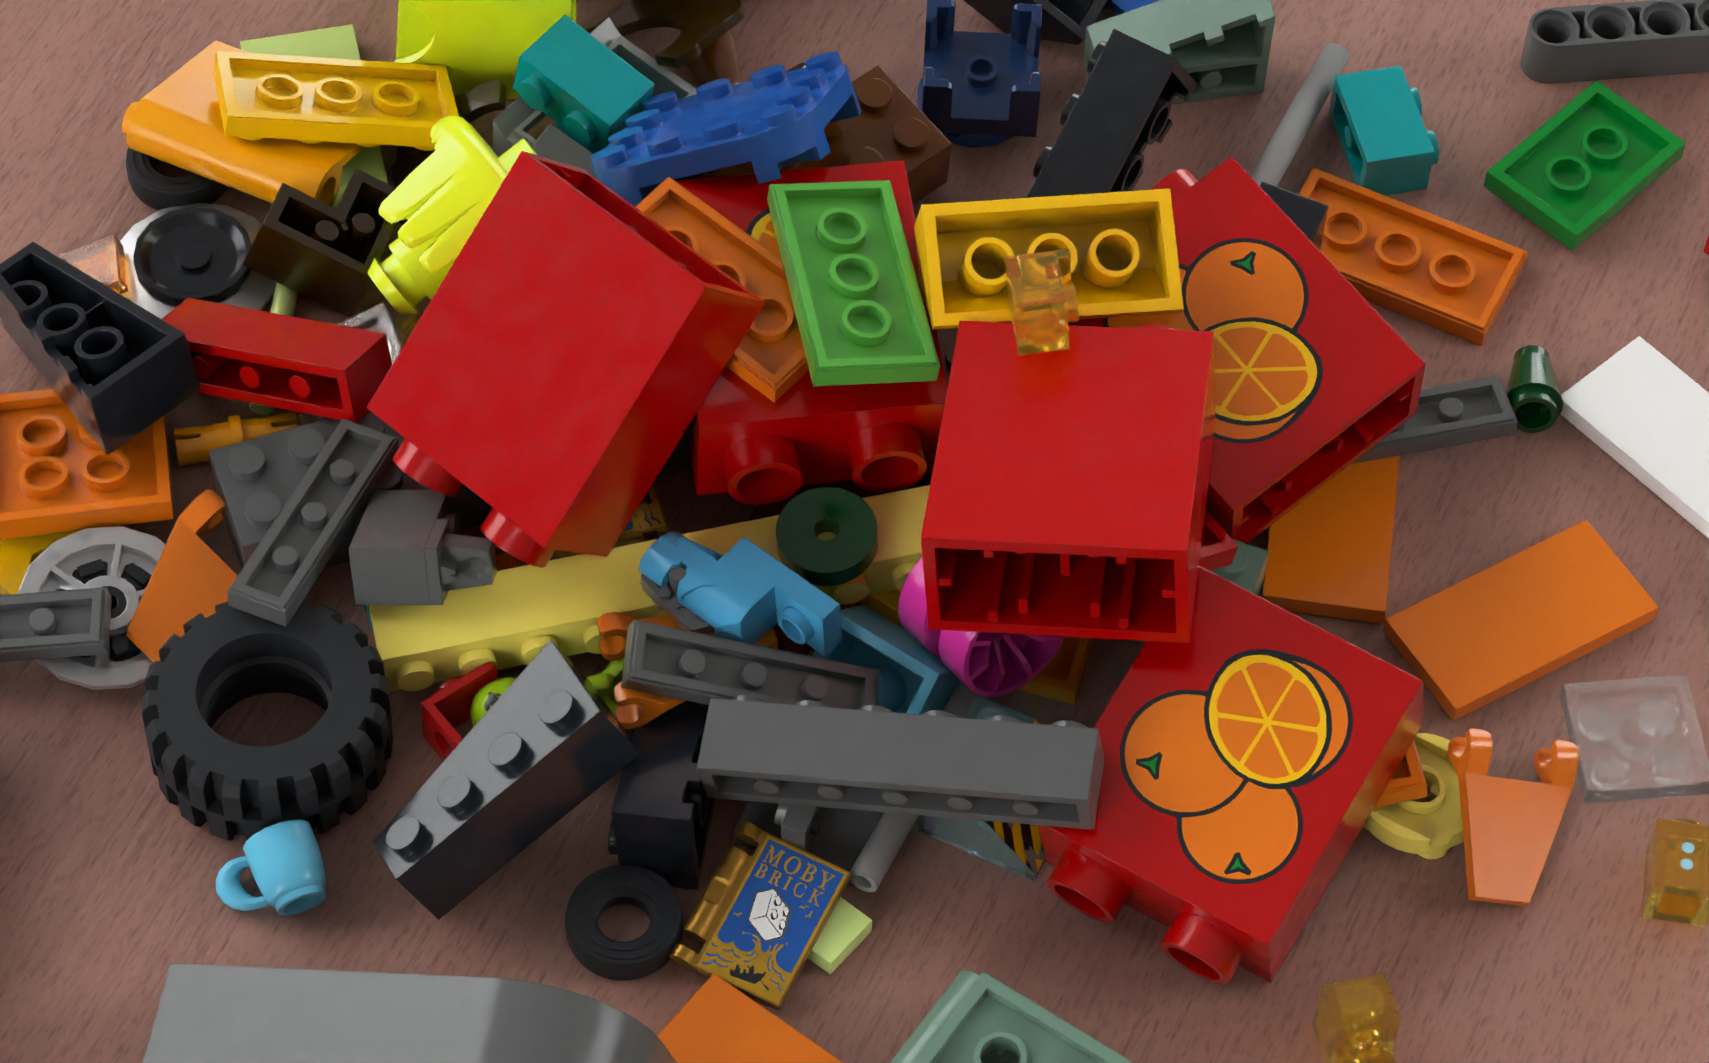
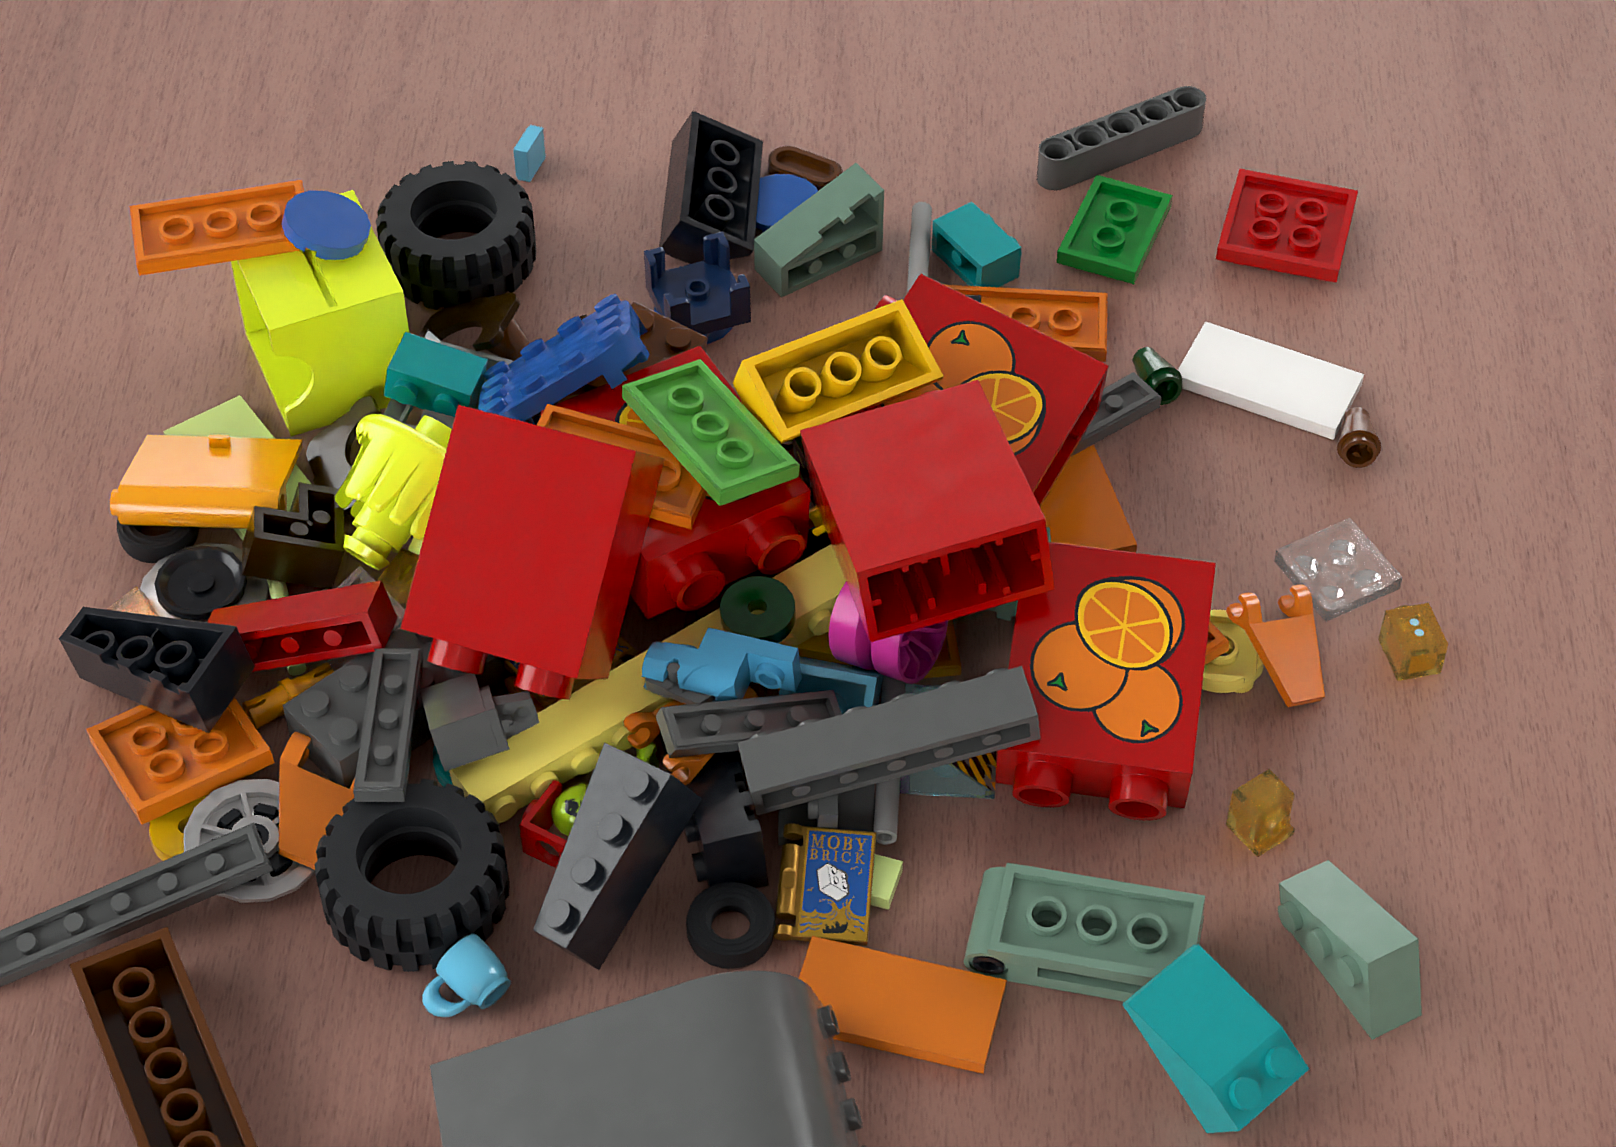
camera: 20 degrees left, 5 degrees down
(331, 99) = (260, 443): yellow plate -> none
(1041, 300) = (854, 396): clear yellow brick -> none
(1112, 120) = (809, 282): black wedge -> none
(1520, 619) = (1228, 514): orange tile -> none

